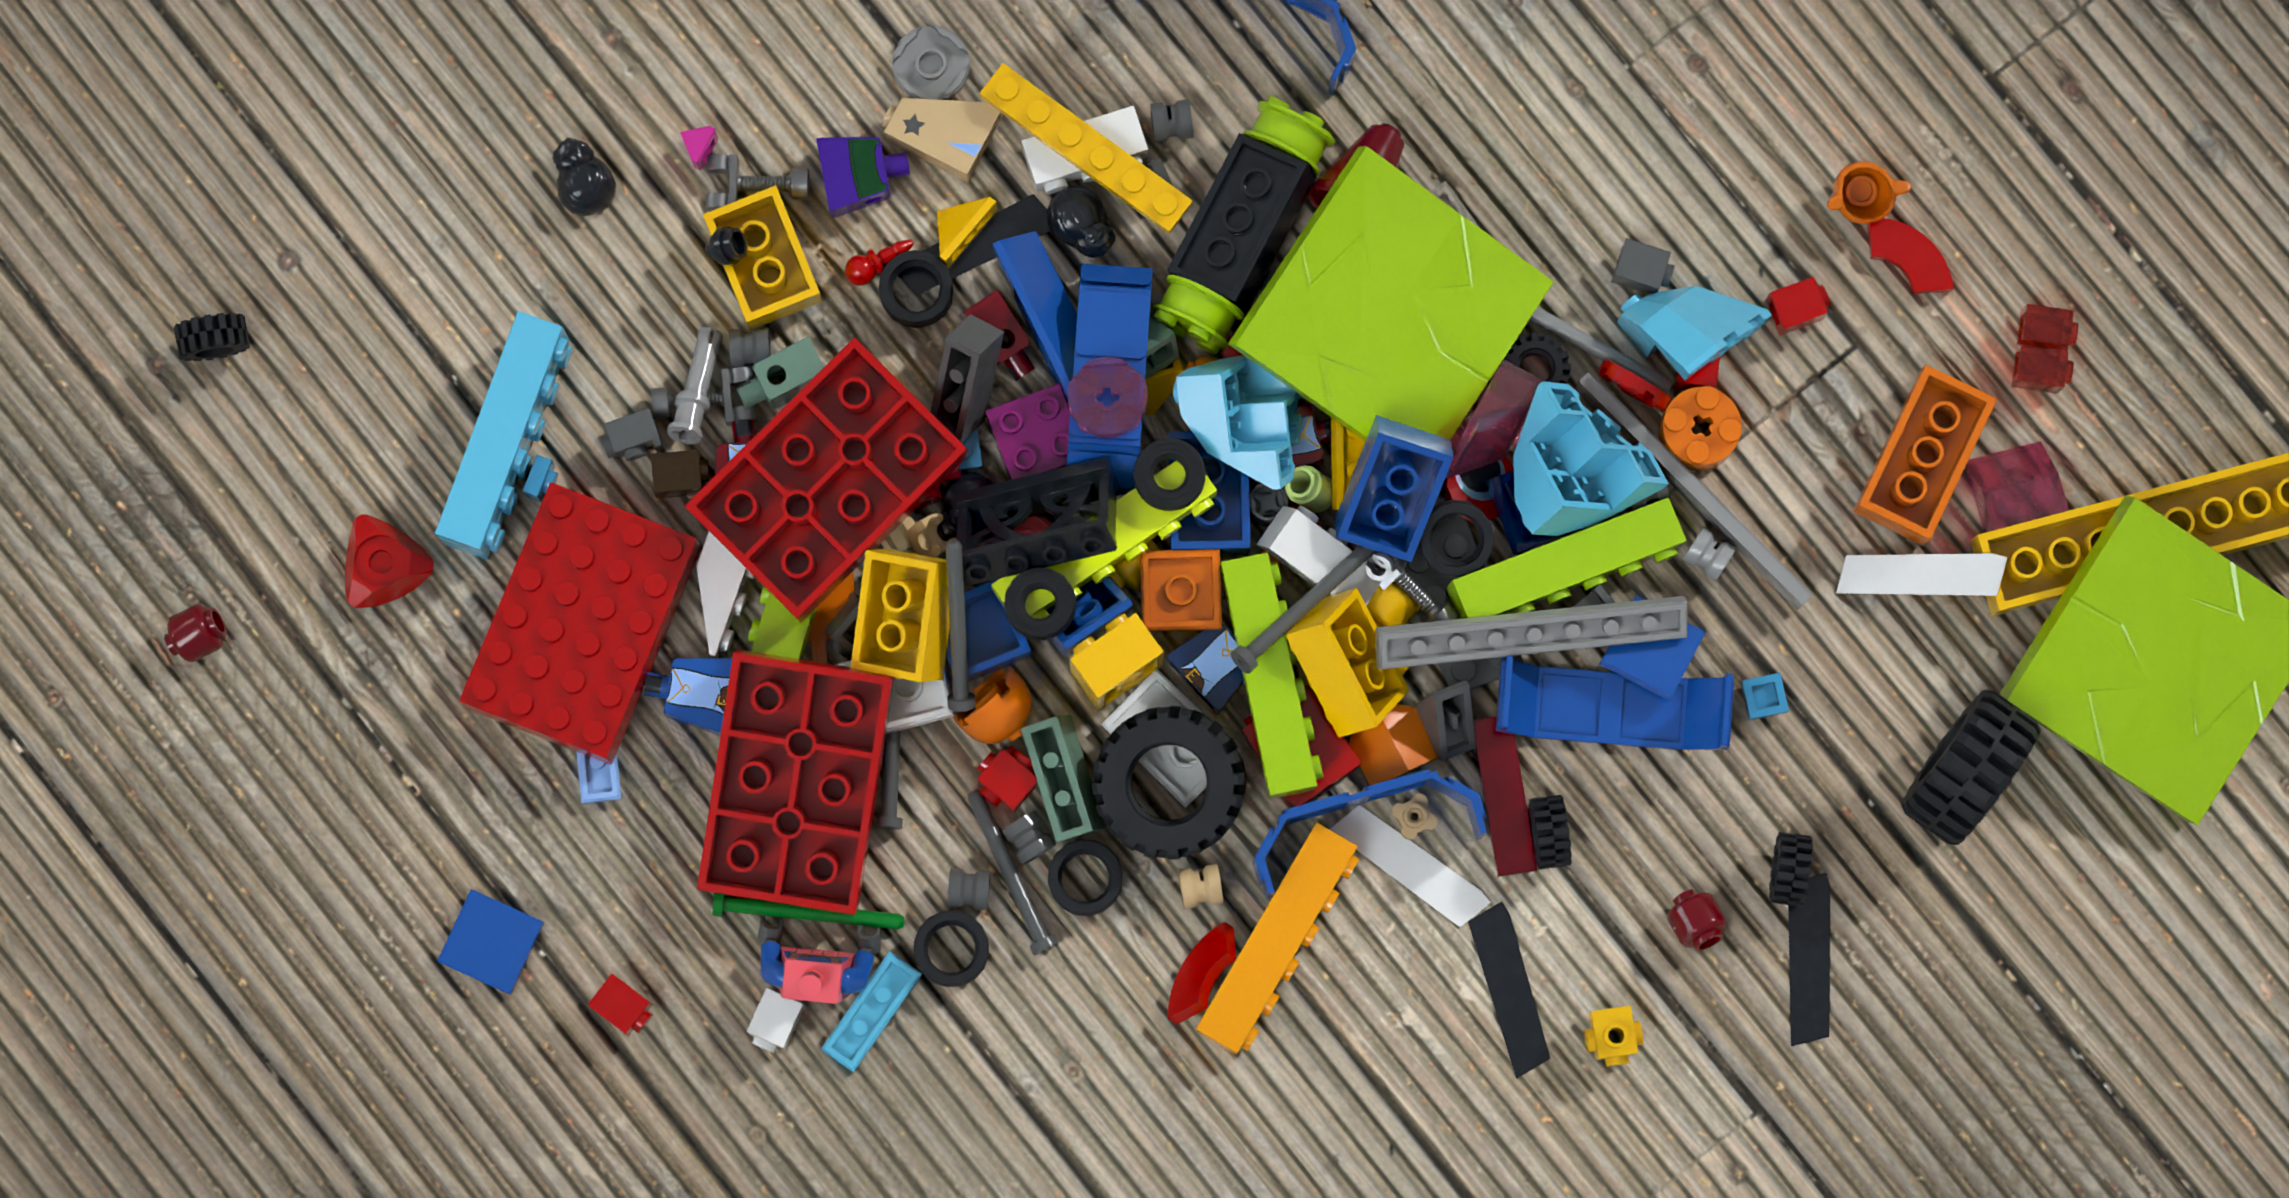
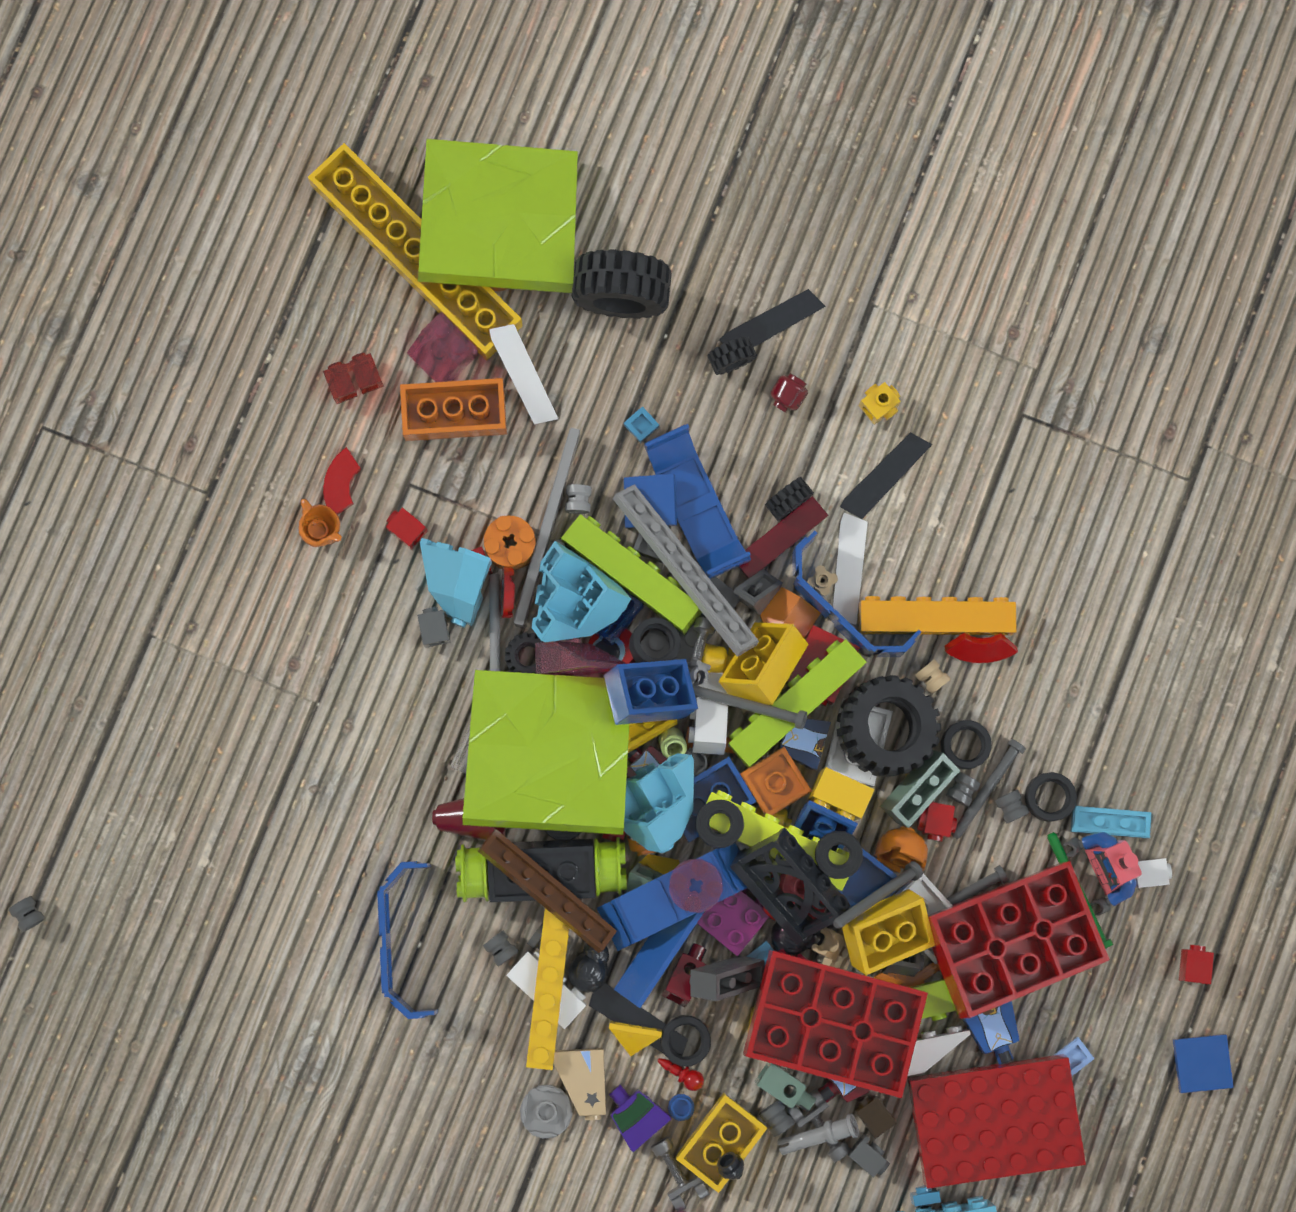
camera: 120 degrees left, 0 degrees up
(835, 236) = (681, 1107): none -> blue plate
(1211, 210) = (547, 891): none -> reddish brown plate

